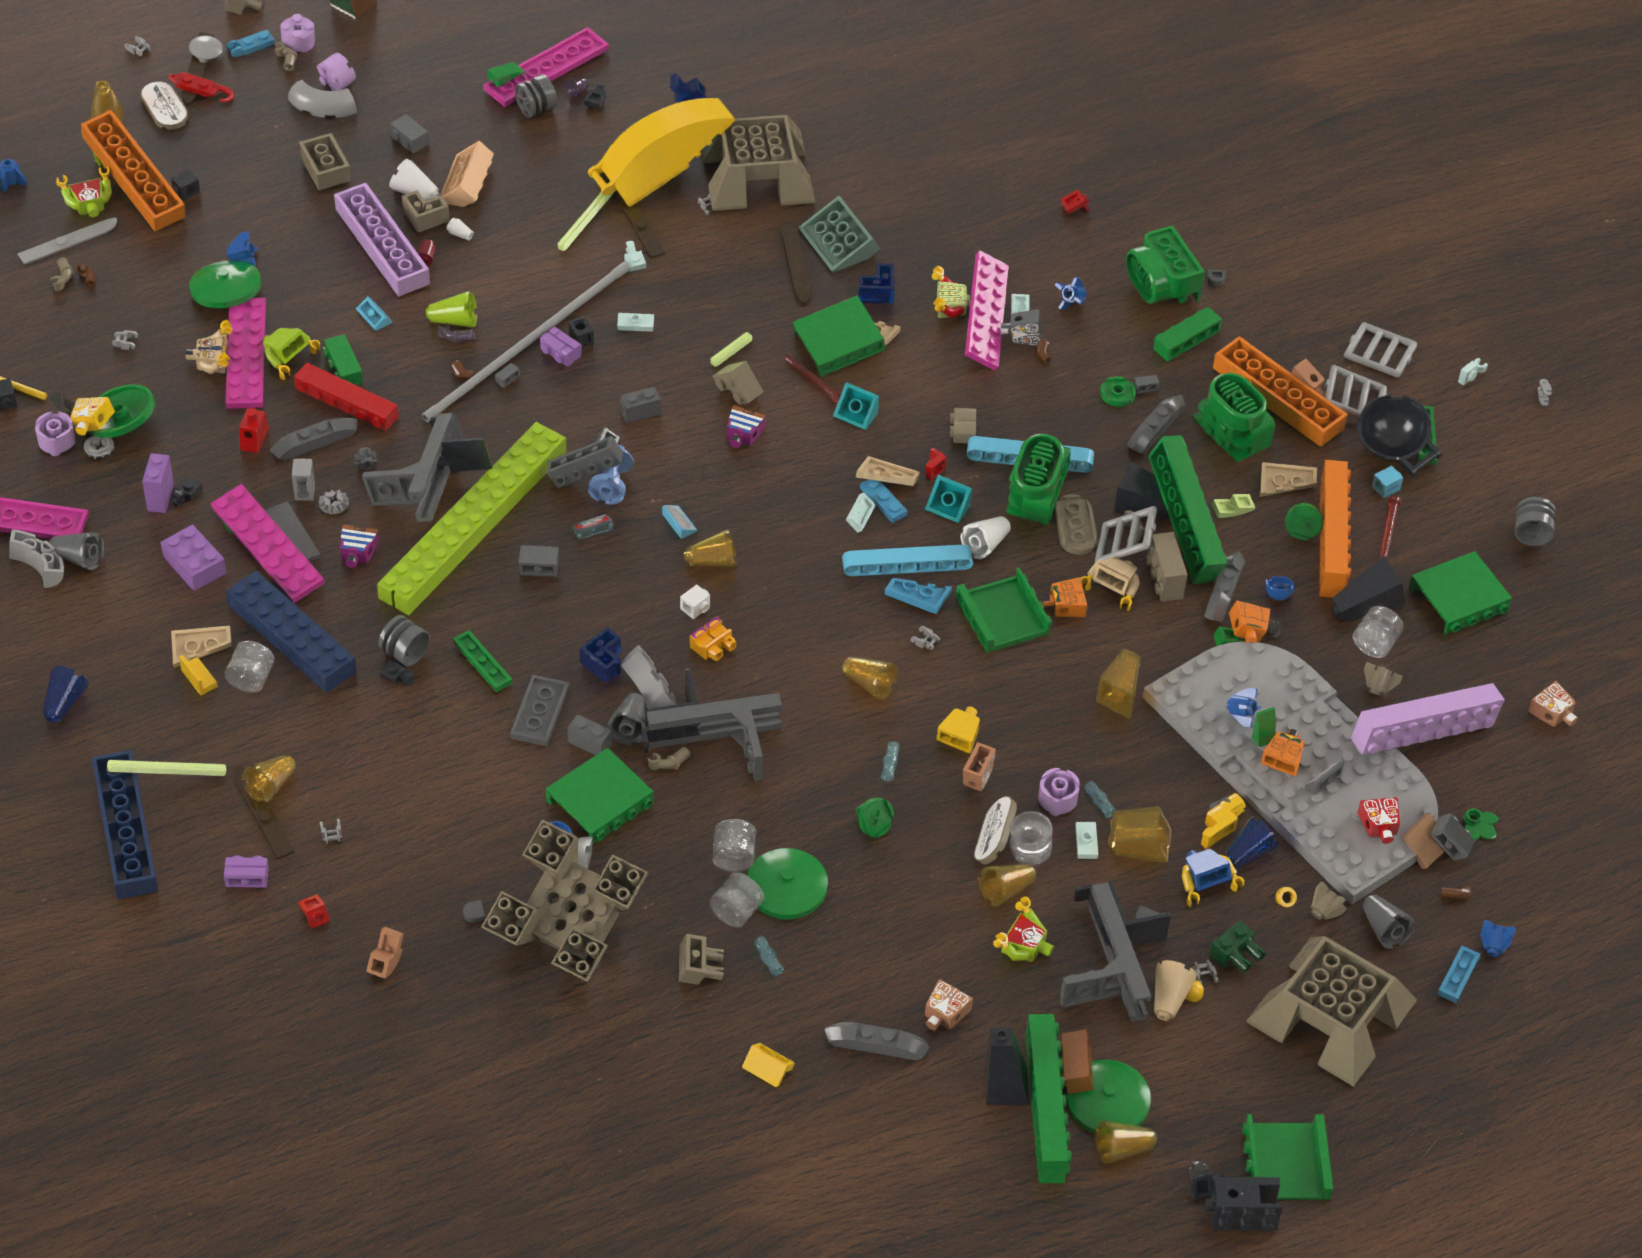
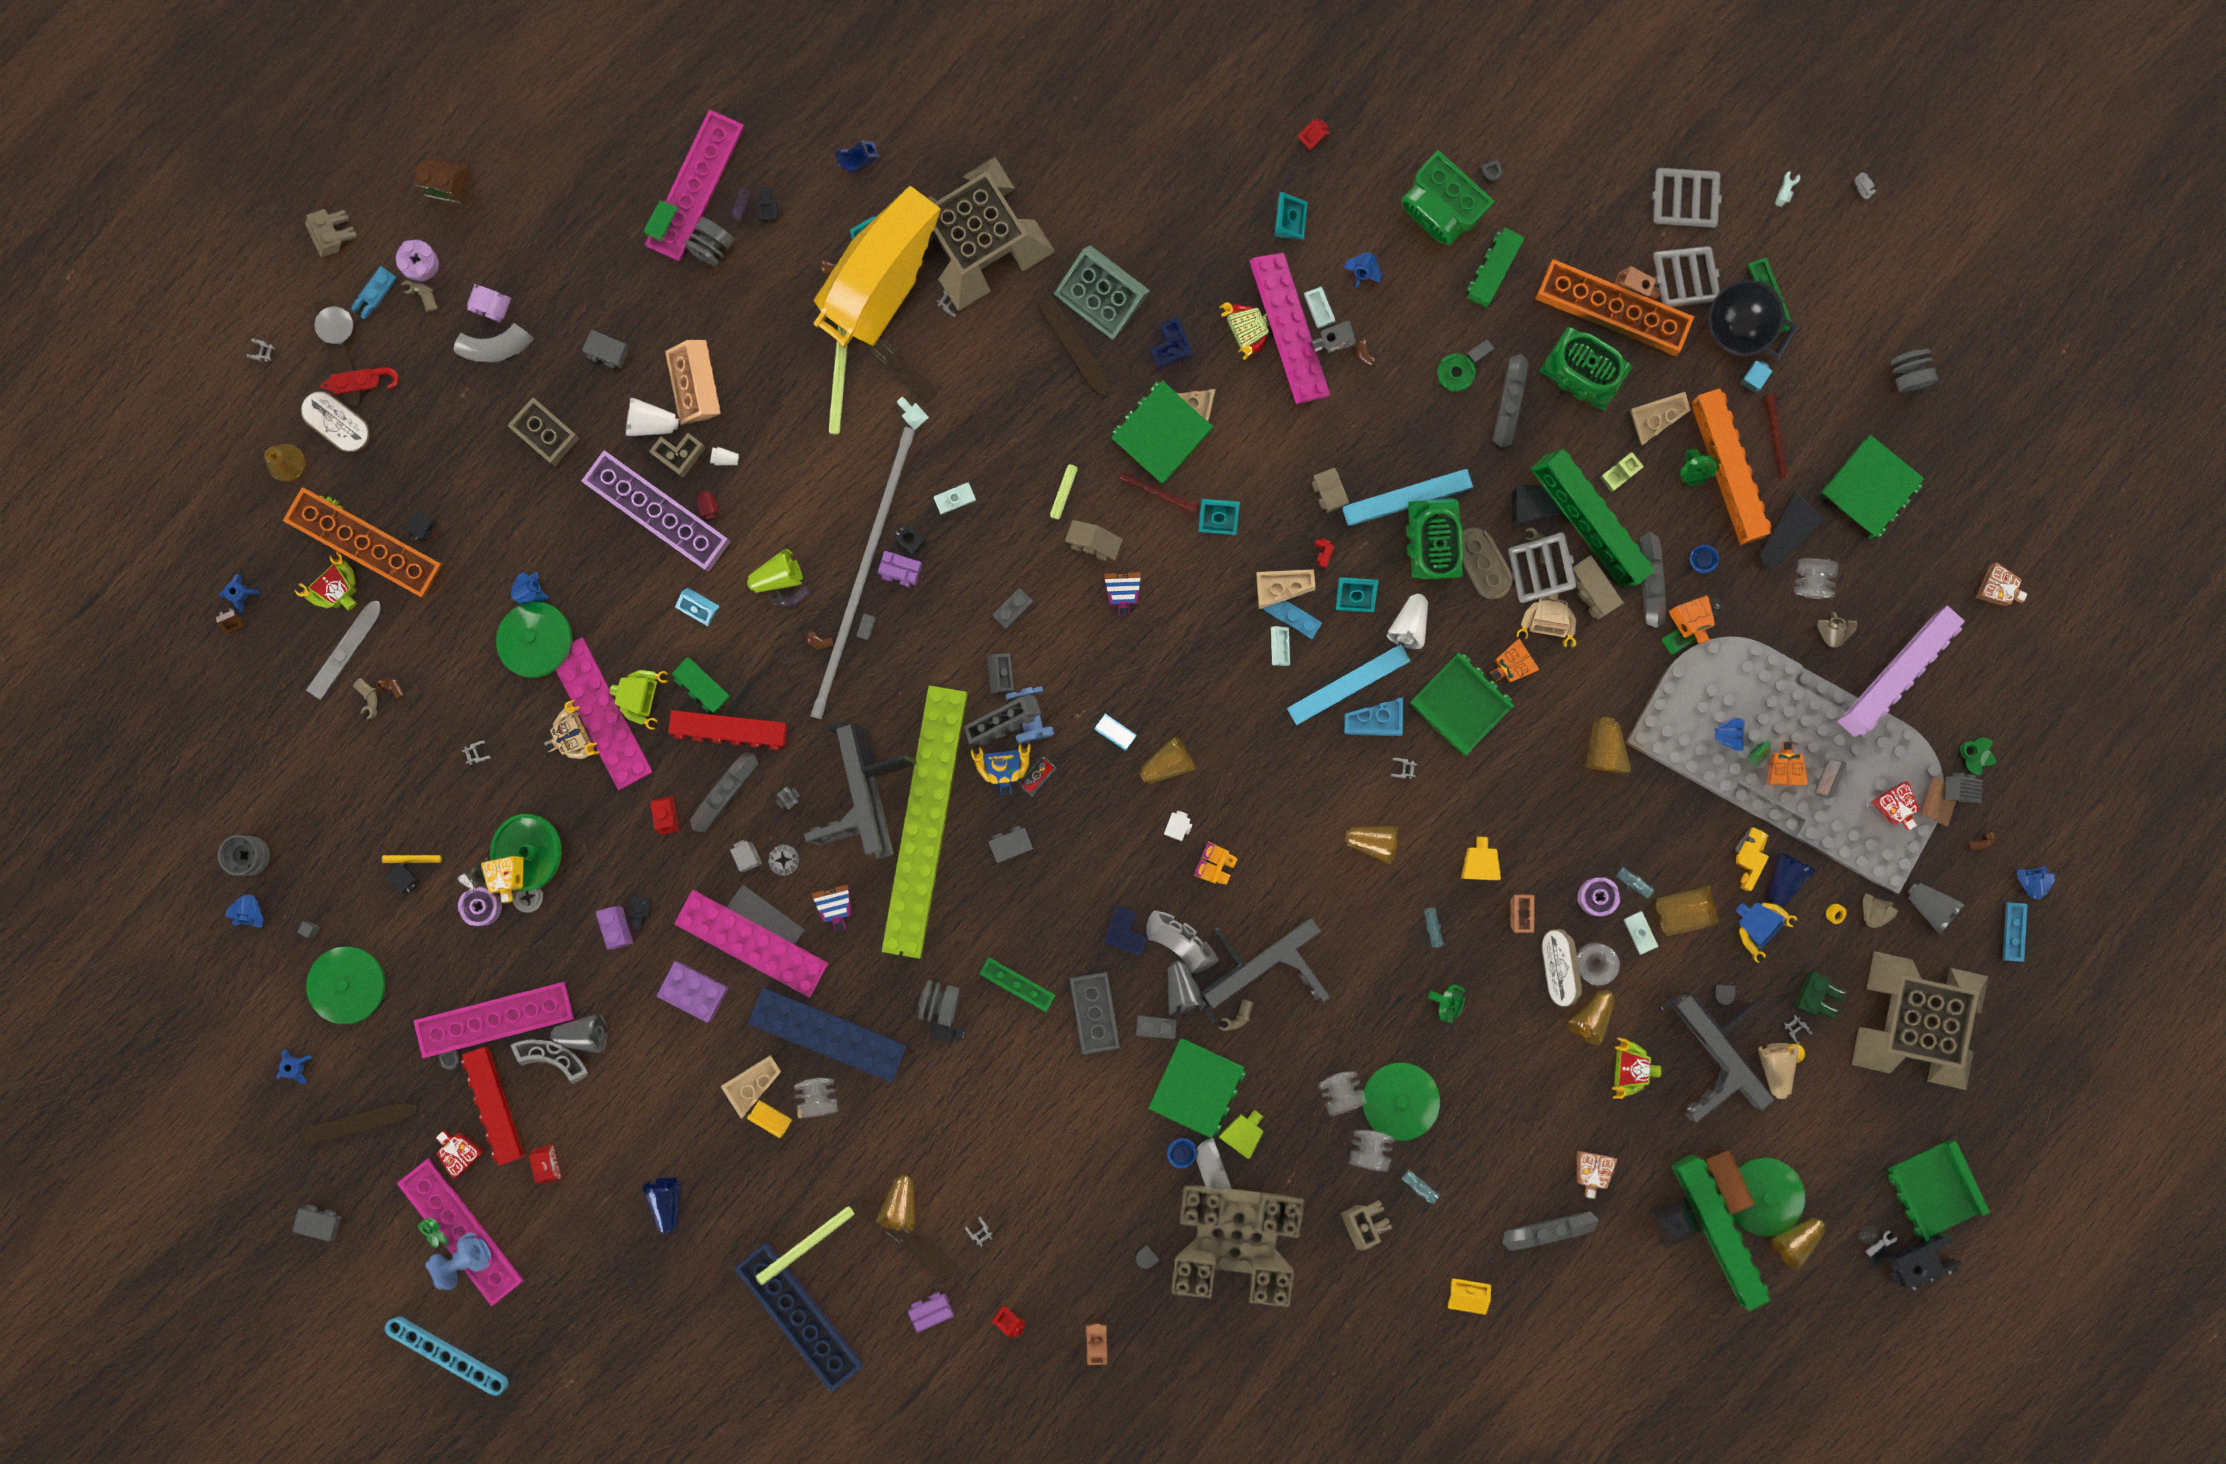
camera: 20 degrees left, 35 degrees up
(566, 505) = (1003, 767): none -> torso
(623, 844) = (1243, 1133): none -> lime torso
(1025, 243) = (1290, 217): none -> teal slope

